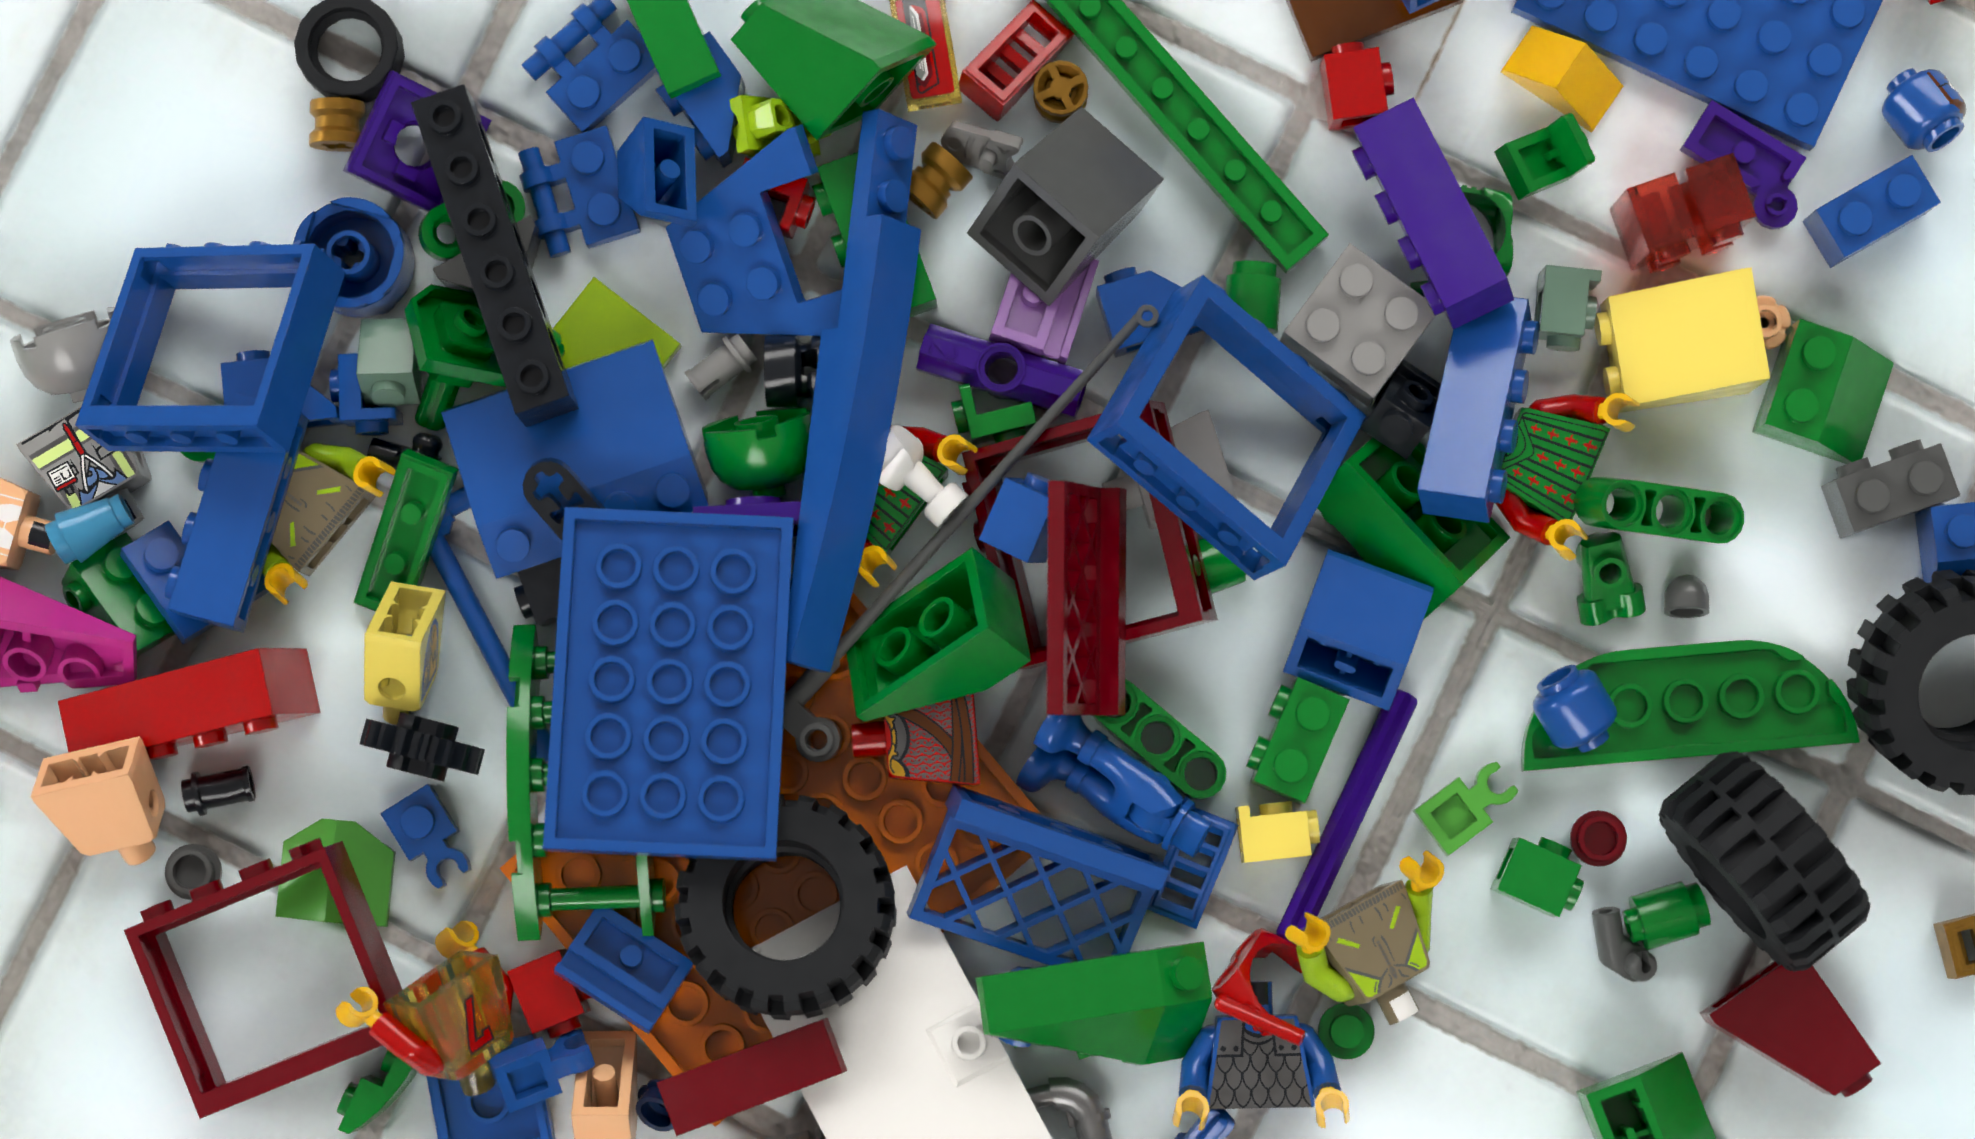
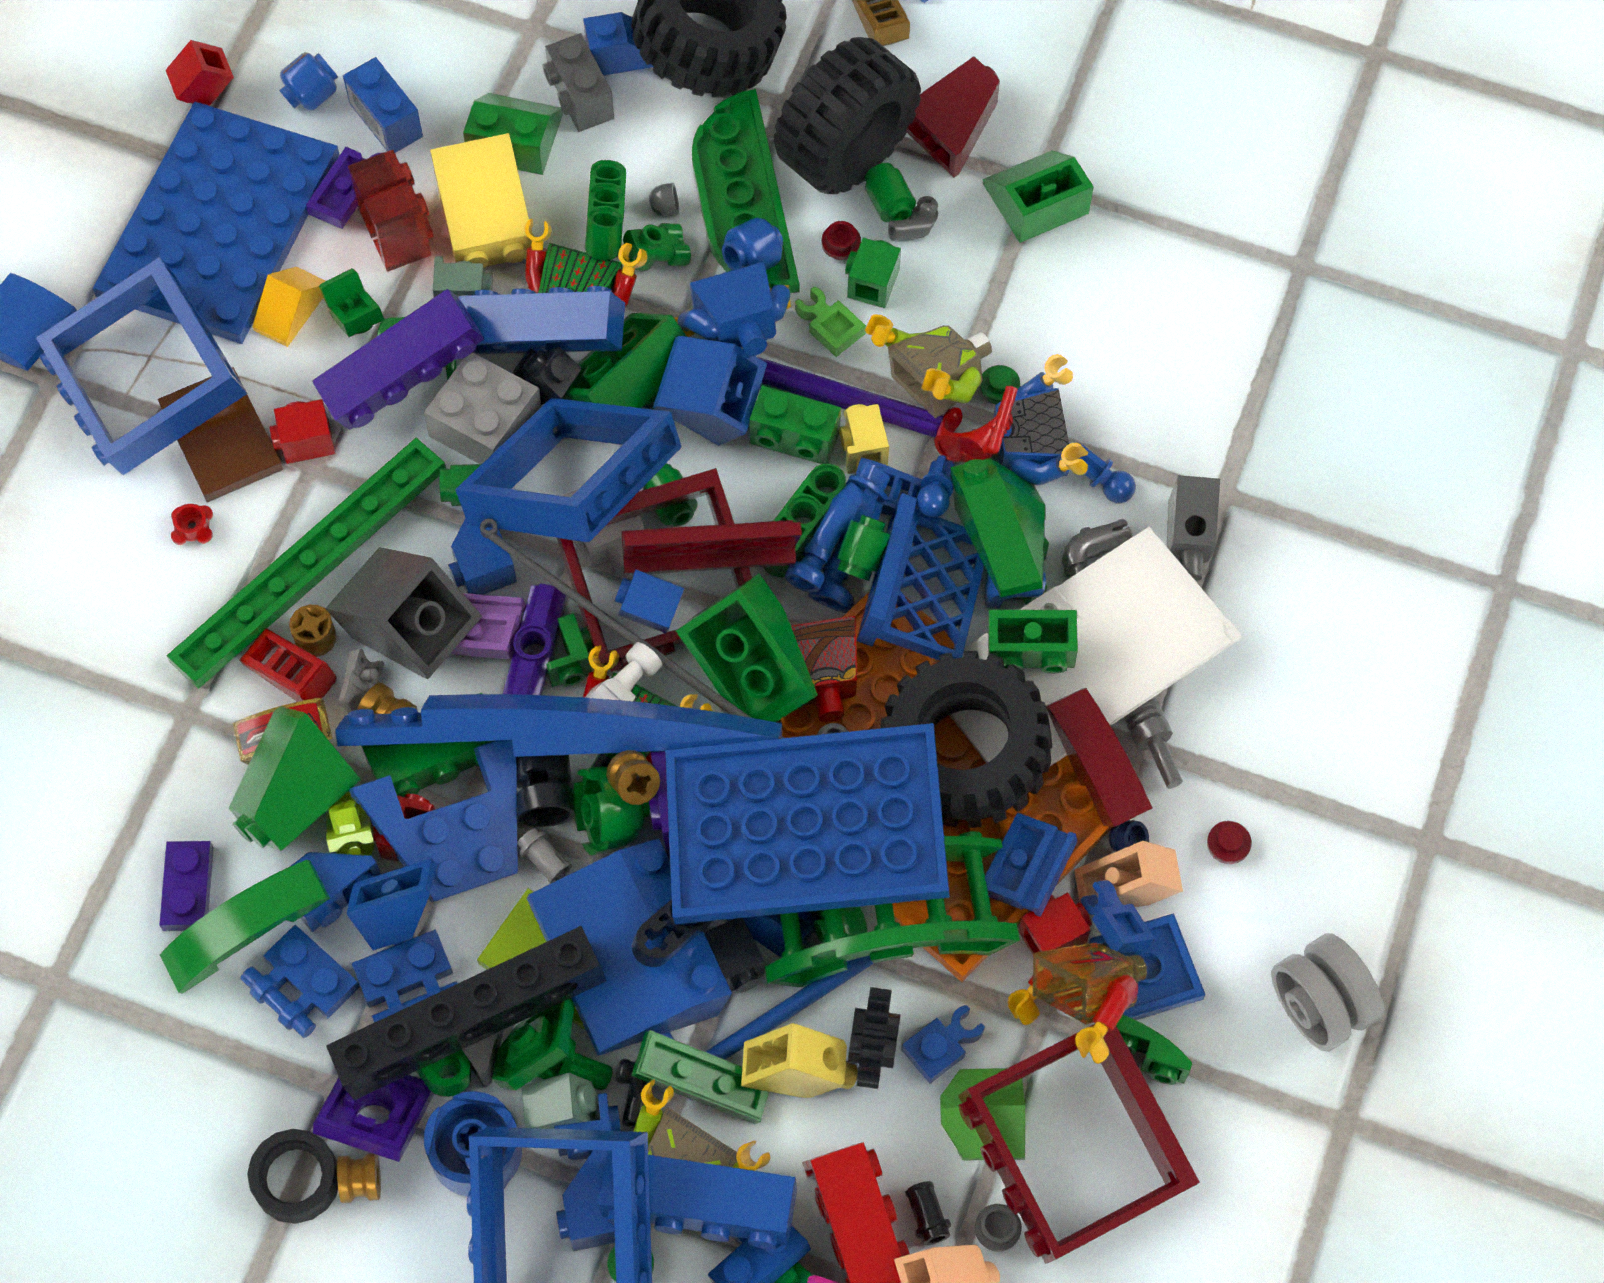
camera: 105 degrees left, 20 degrees down
(766, 475) = (623, 773): none -> pearl gold wheel
(912, 1011) = (1034, 638): none -> green brick
(1084, 807) = (863, 547): none -> green brick
(1161, 913) = (936, 488): none -> blue axle
(1469, 677) = (736, 308): none -> blue torso

